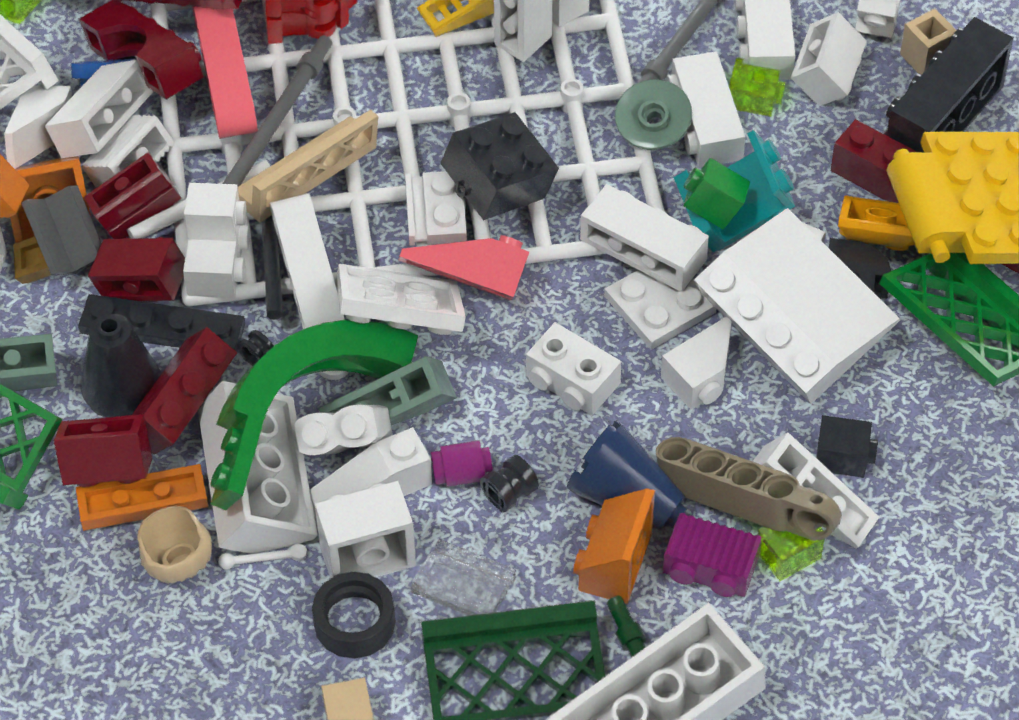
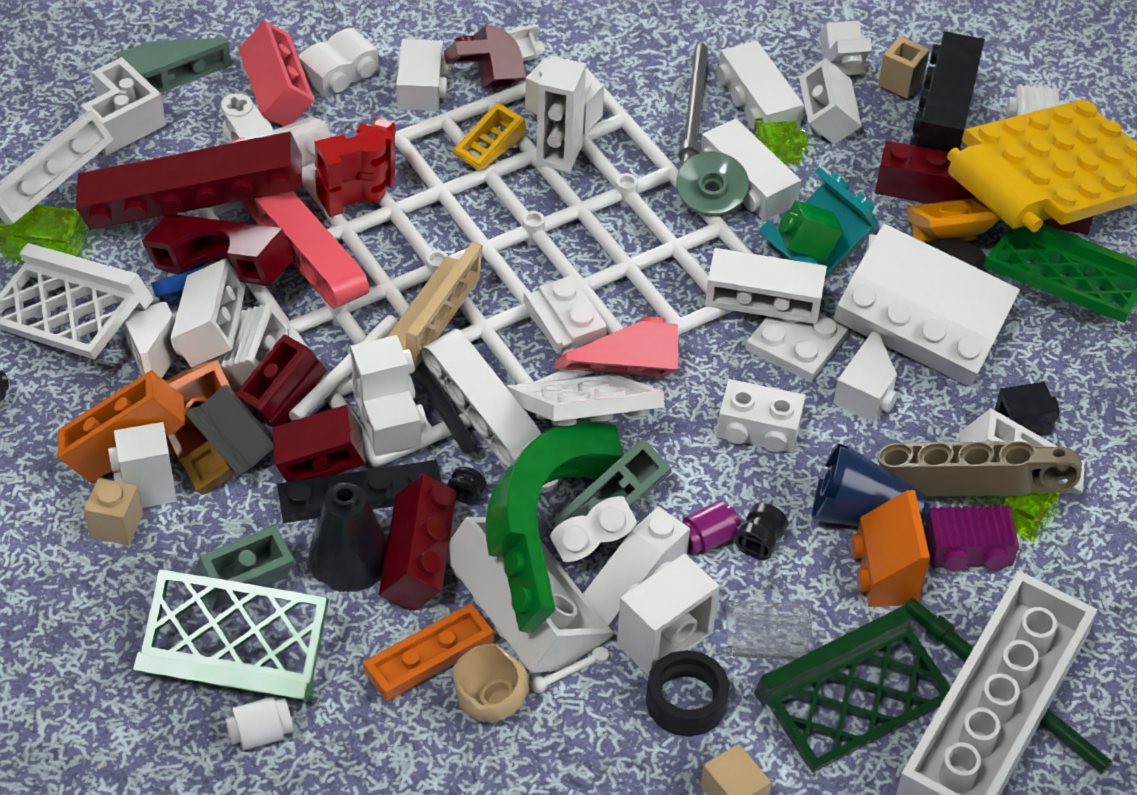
camera: 25 degrees left, 5 degrees down
(103, 450) = (381, 616): dark red brick -> none
(307, 69) = (382, 227): dark grey bar -> none
(499, 165) = (611, 258): black brick -> none

